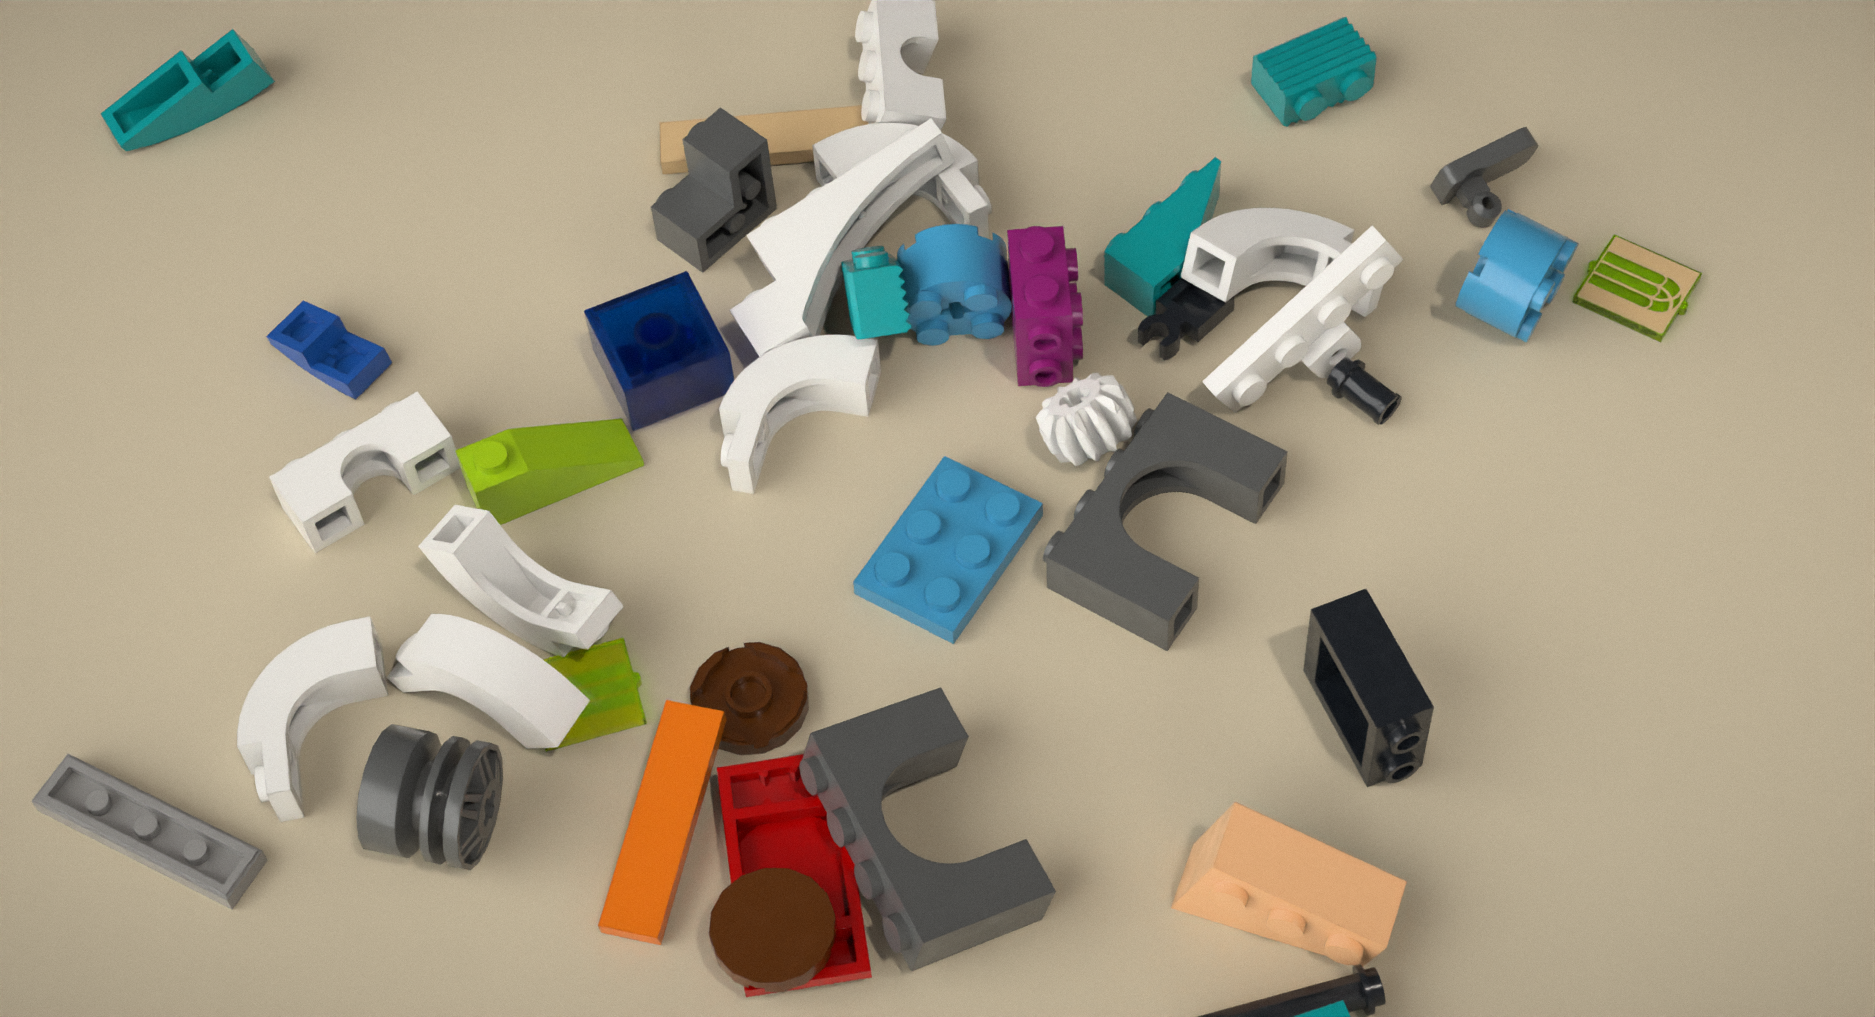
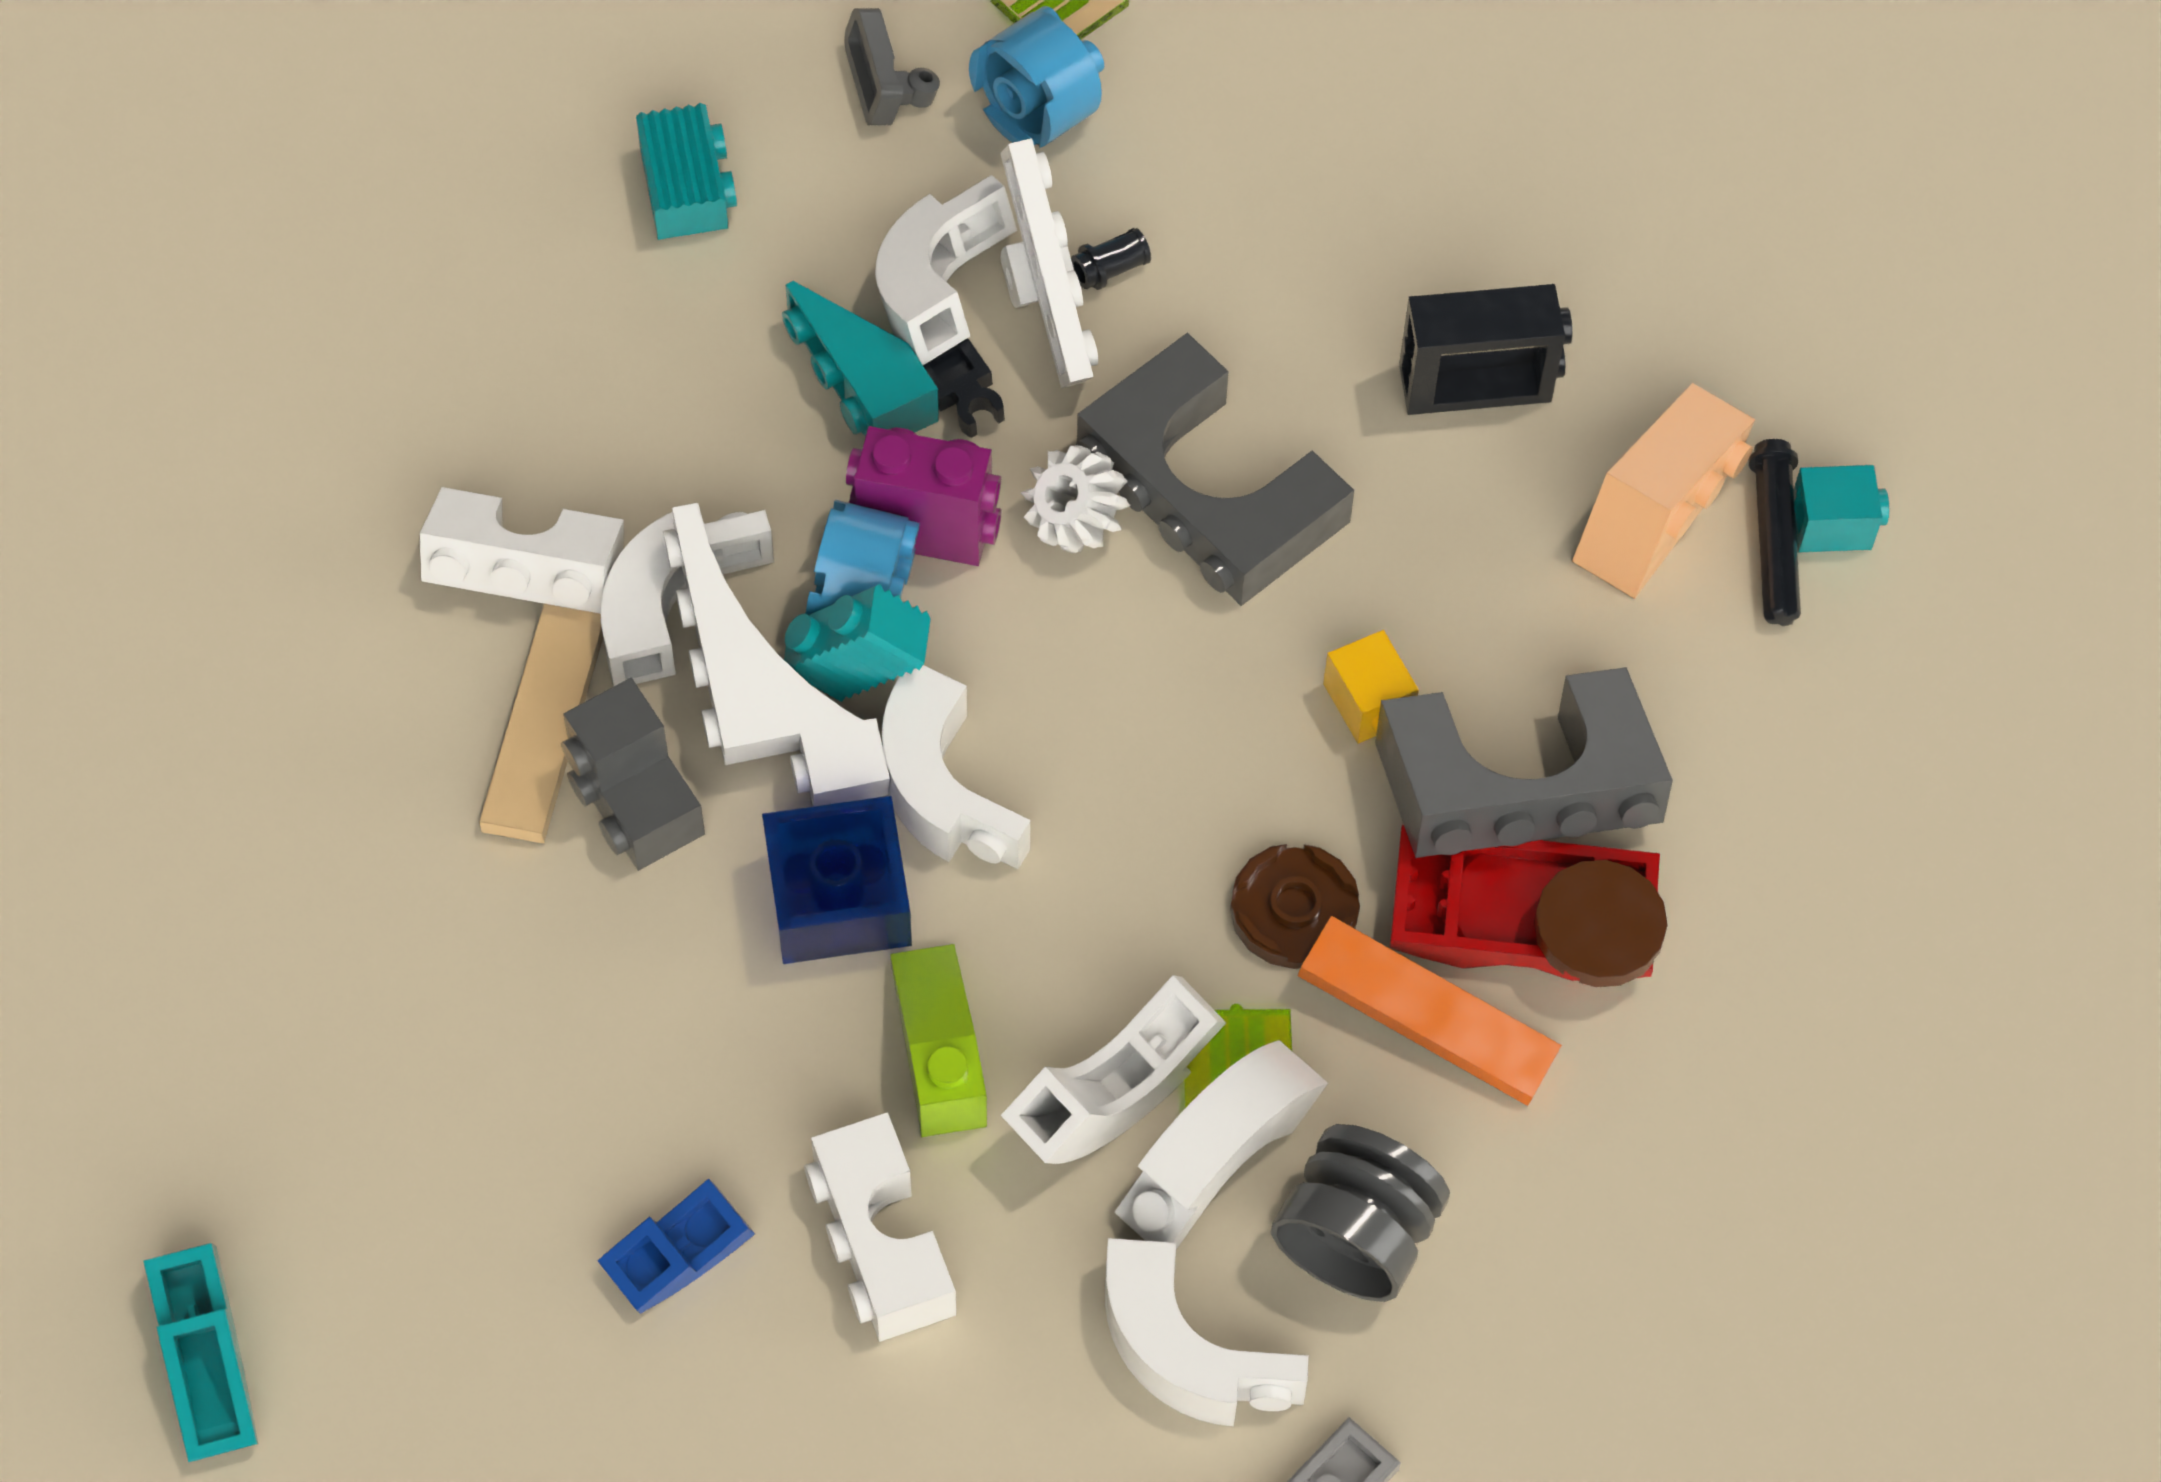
camera: 80 degrees left, 5 degrees up
(948, 549) = (1172, 677): dark azure plate -> none
(984, 693) = (1362, 677): none -> yellow brick

